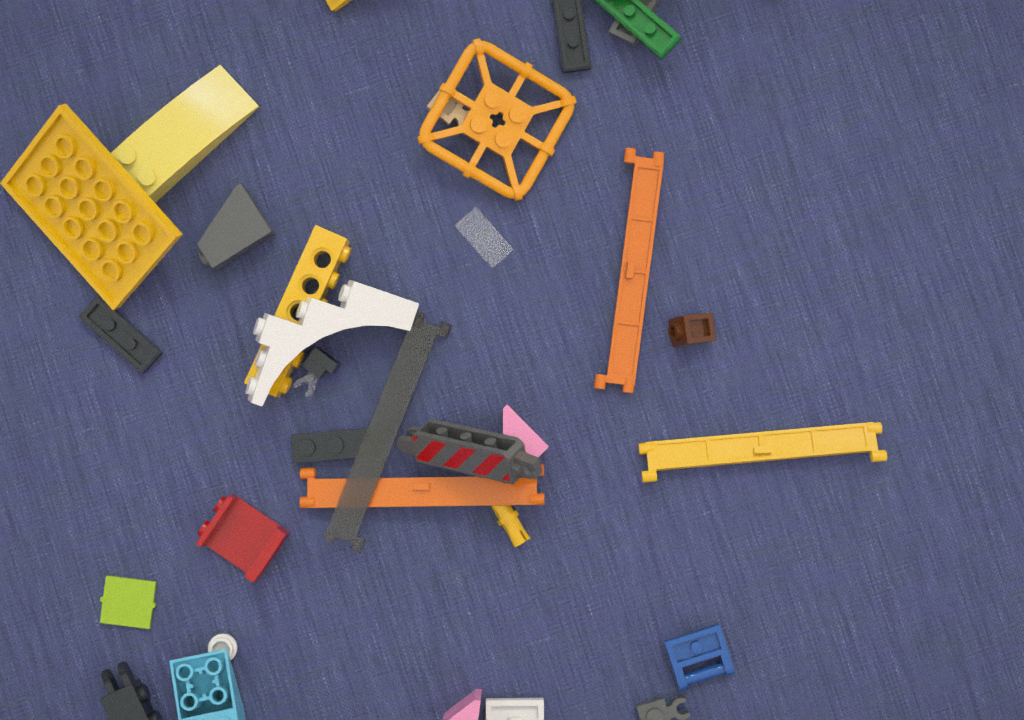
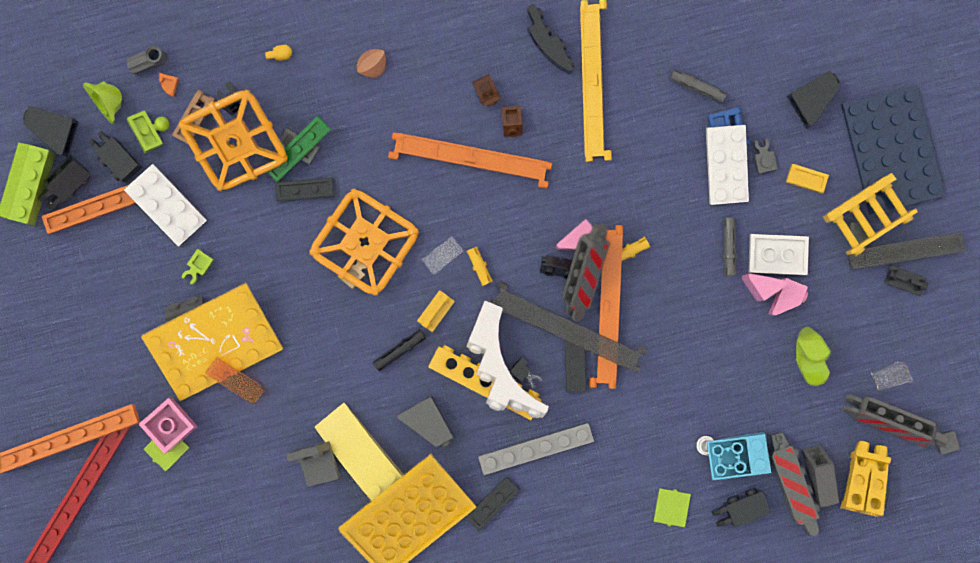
camera: 85 degrees left, 0 degrees up
(165, 70) = (317, 463): none -> dark grey bracket
(204, 393) = (536, 448): none -> light grey plate
(242, 536) = (632, 427): red panel -> none
(345, 189) = (403, 347): none -> black pin
(400, 233) = (435, 311): none -> yellow hinge
(471, 293) = (479, 266): none -> yellow pin
(477, 400) = (550, 266): none -> black hinge
(522, 668) = (729, 247): none -> dark grey pin
(646, 657) = (727, 164): none -> white plate
(735, 288) = (486, 90): none -> reddish brown bracket
(765, 115) = (372, 63): none -> nougat piece
(765, 602) = (701, 87): none -> dark grey pin
(806, 381) = (552, 47): none -> black slope

